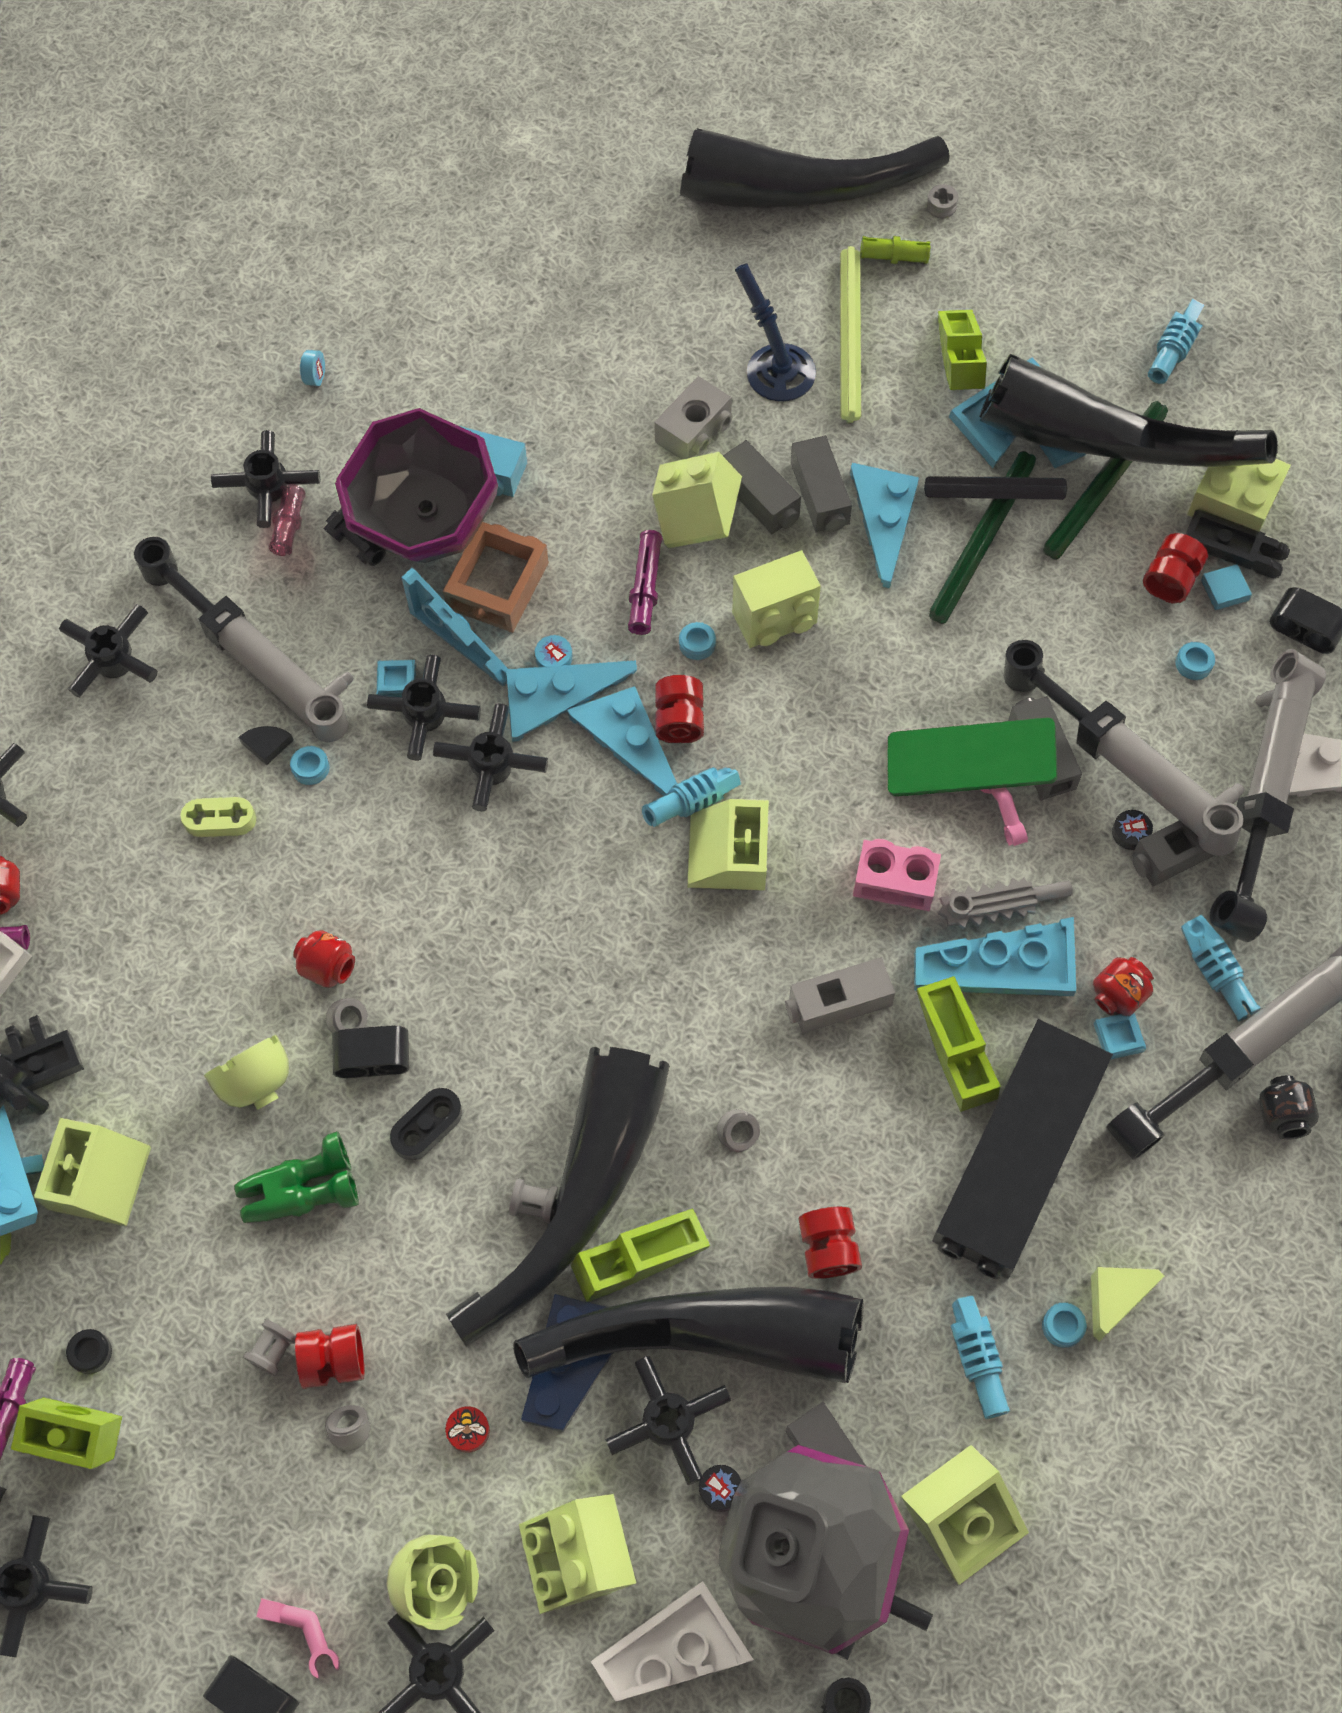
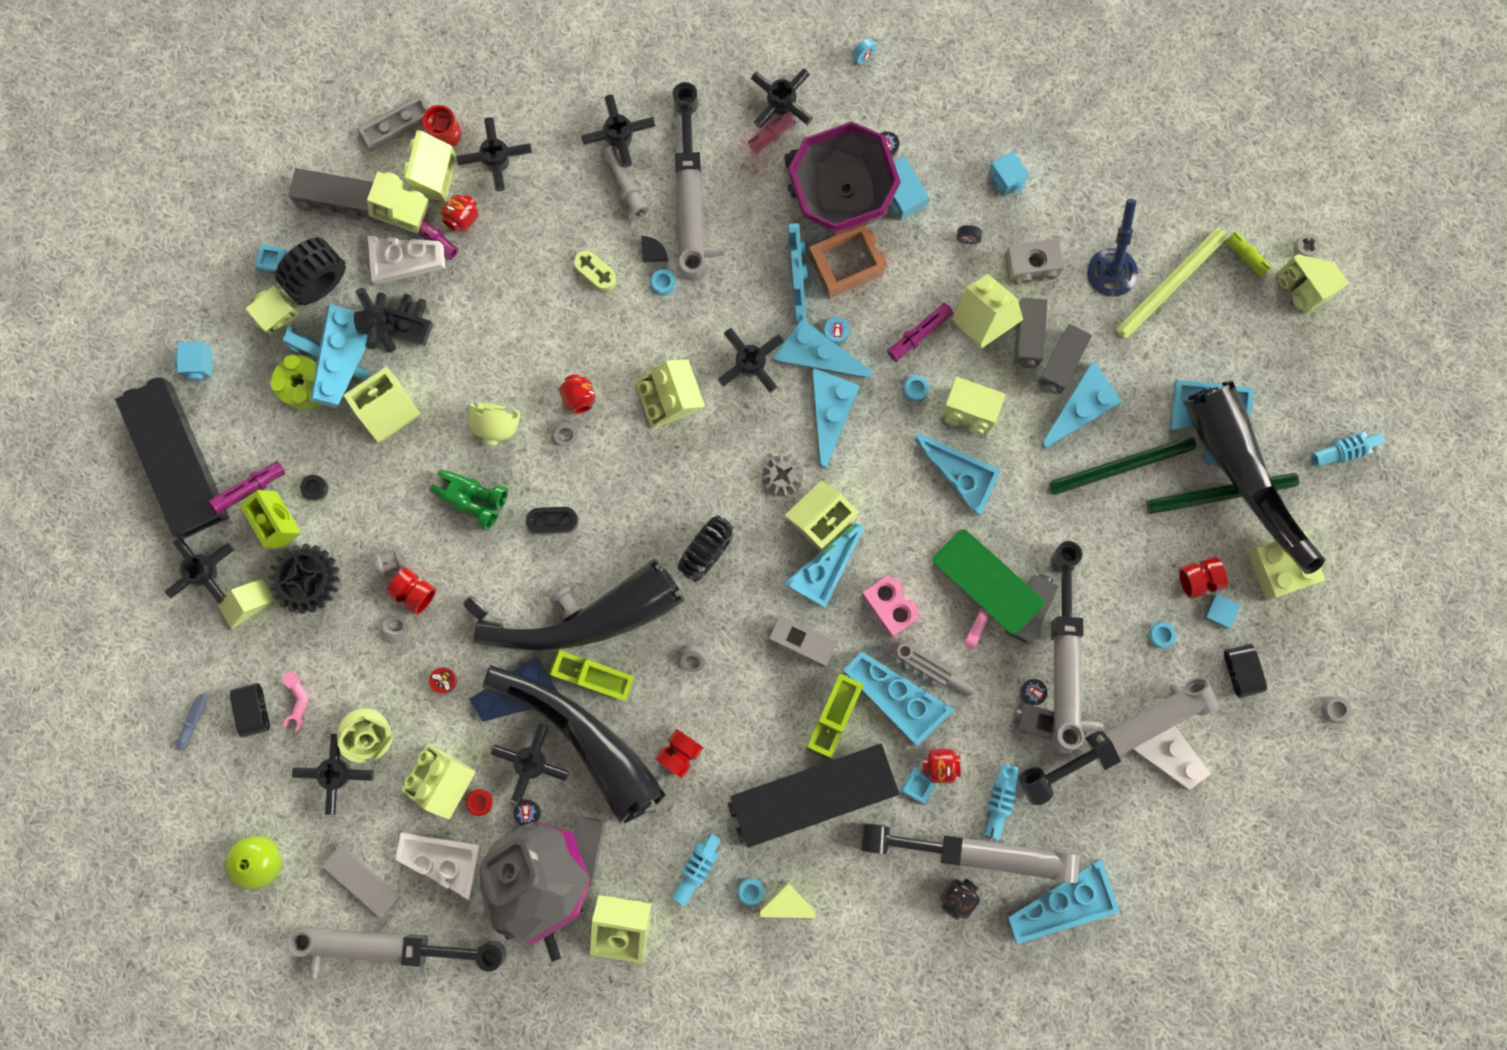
camera: 45 degrees right, 15 degrees up
(122, 1571) = (245, 602): none -> yellowish green slope
(166, 1481) = (296, 559): none -> black gear
(179, 704) = (628, 192): none -> light grey pin
(370, 1051) = (558, 461): black beam -> none
(394, 676) = (746, 272): medium azure tile -> none
(413, 708) = (746, 293): black bar -> none
(428, 1304) = (475, 608): none -> black tile
(430, 869) = (669, 393): none -> yellowish green slope
(583, 362) = (1008, 174): none -> medium azure brick
(601, 449) = (969, 234): none -> black tile
(638, 988) = (706, 548): none -> black gear
(651, 1532) = (479, 802): none -> red tile
(653, 860) = (781, 487): none -> light grey gear
(679, 709) = (867, 420): red wheel -> none
(691, 795) = (830, 472): medium azure hinge -> none
(759, 176) = (1213, 141): black brick -> none
(789, 906) = (821, 574): none -> medium azure wing
(840, 676) = (966, 474): none -> medium azure wing
(962, 350) = (1221, 348): lime slope -> none
(981, 219) = (1311, 281): none -> yellowish green slope
(996, 487) = (1153, 446): black axle -> none
(1238, 543) = (1251, 591): black hinge -> none

